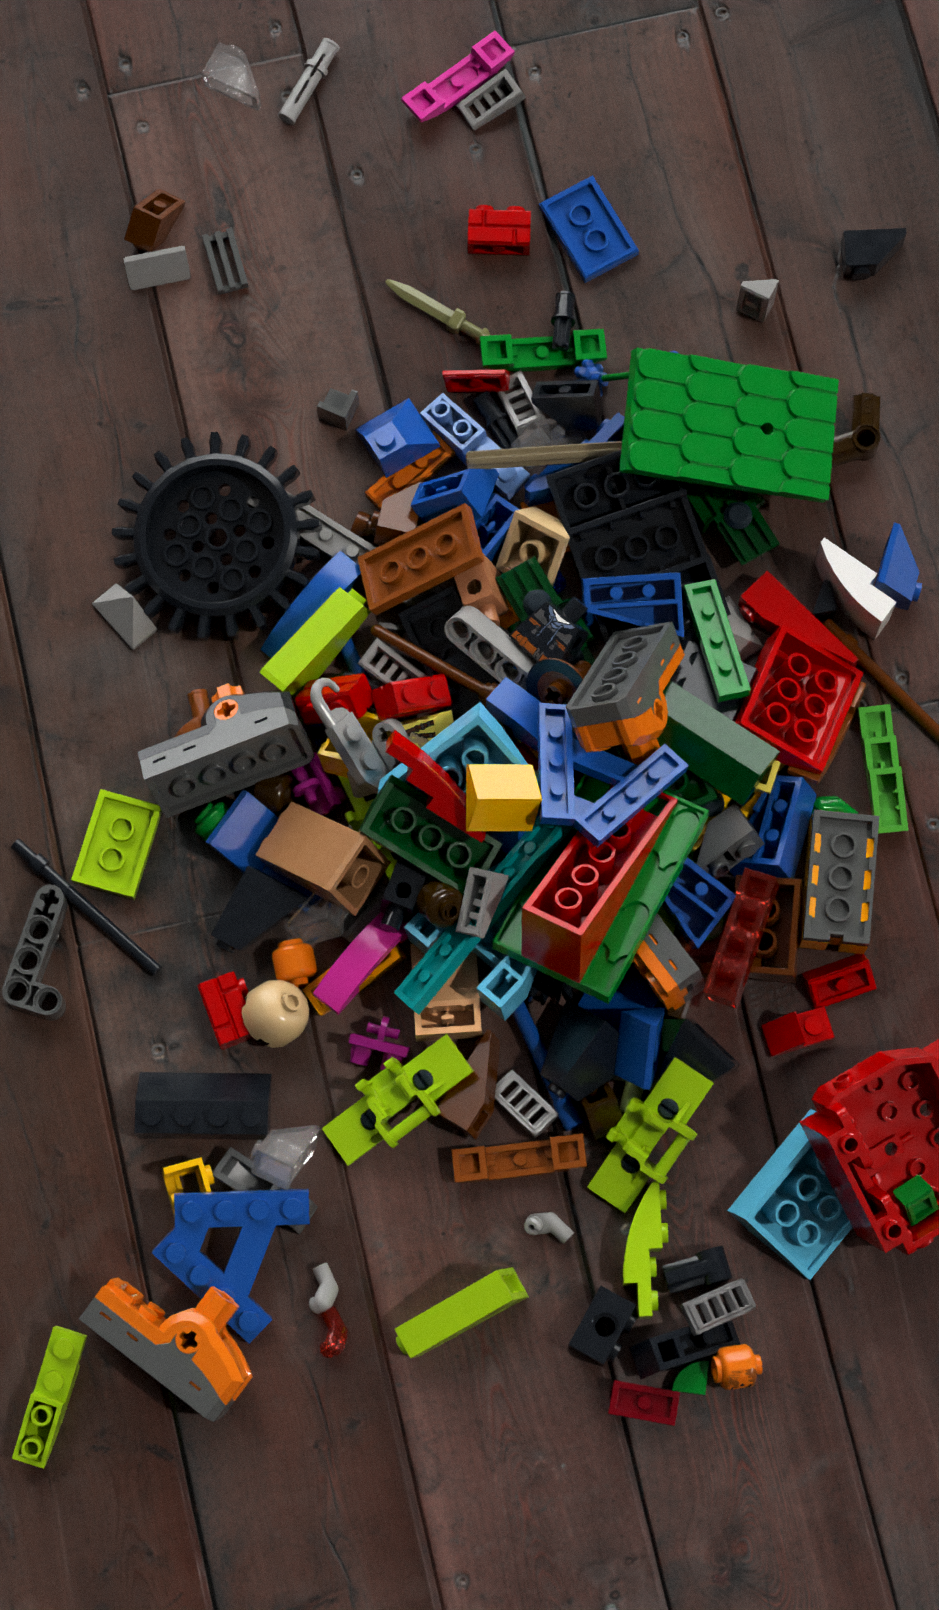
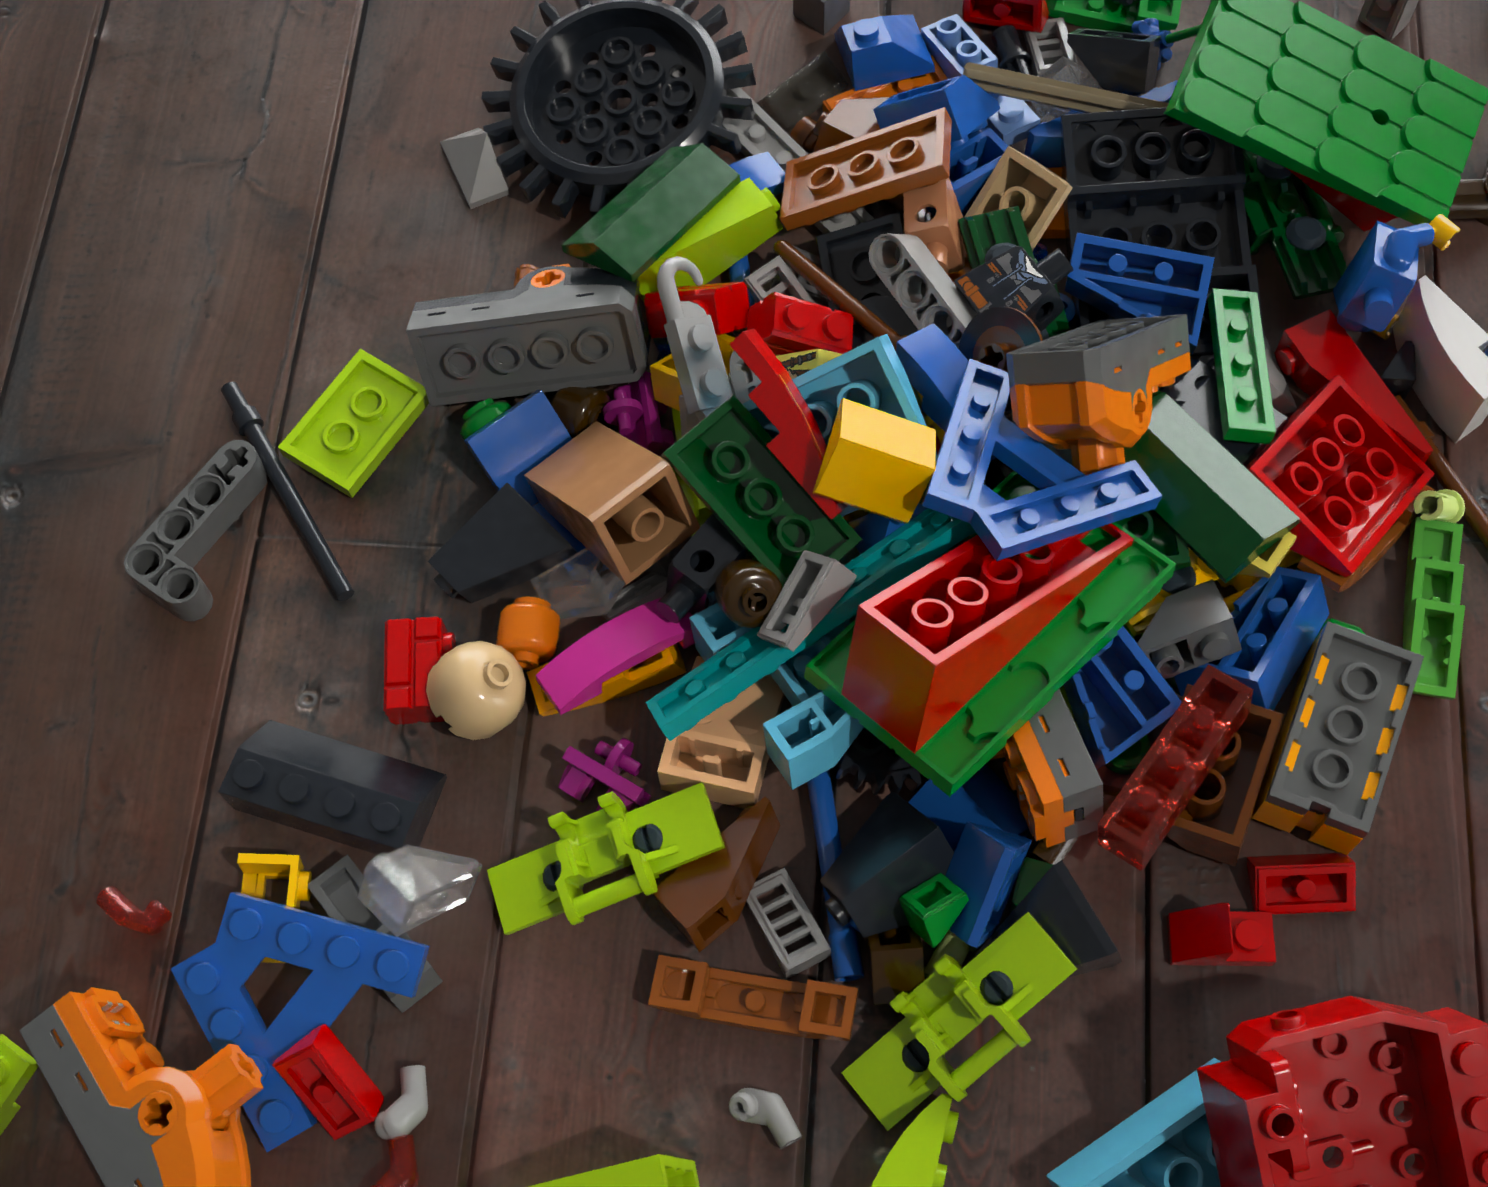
camera: 20 degrees right, 10 degrees down
(99, 1227) = (128, 915): none -> clear red arm
(274, 1290) = (330, 1082): none -> red slope
(282, 636) = (653, 211): none -> dark green slope
(346, 486) = (803, 92): none -> clear smoke slope
(616, 1071) = (933, 908): none -> green slope
(795, 544) = (1385, 274): none -> blue torso
(873, 695) = (1440, 505): none -> yellowish green pin

